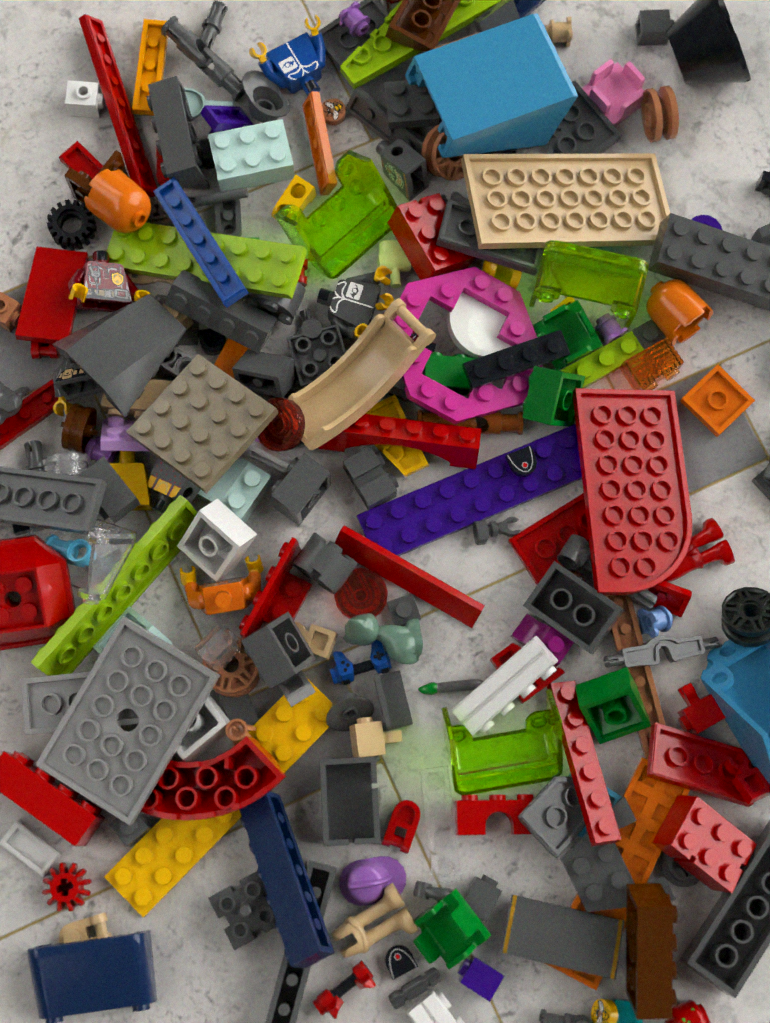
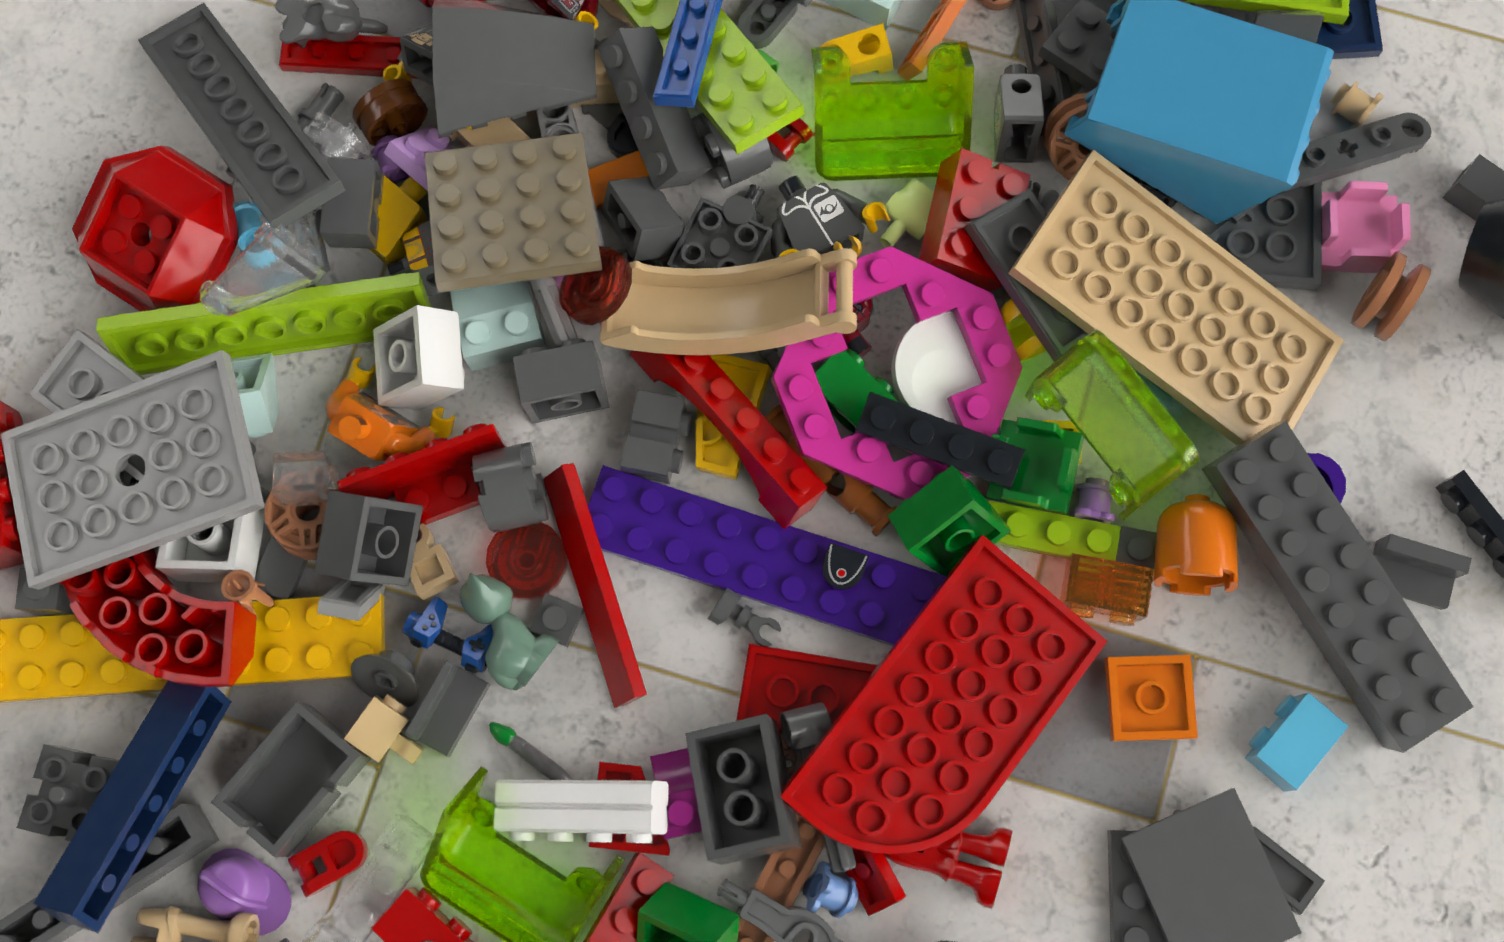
camera: 50 degrees right, 0 degrees up
(584, 46) = (1366, 144): none -> dark grey piece

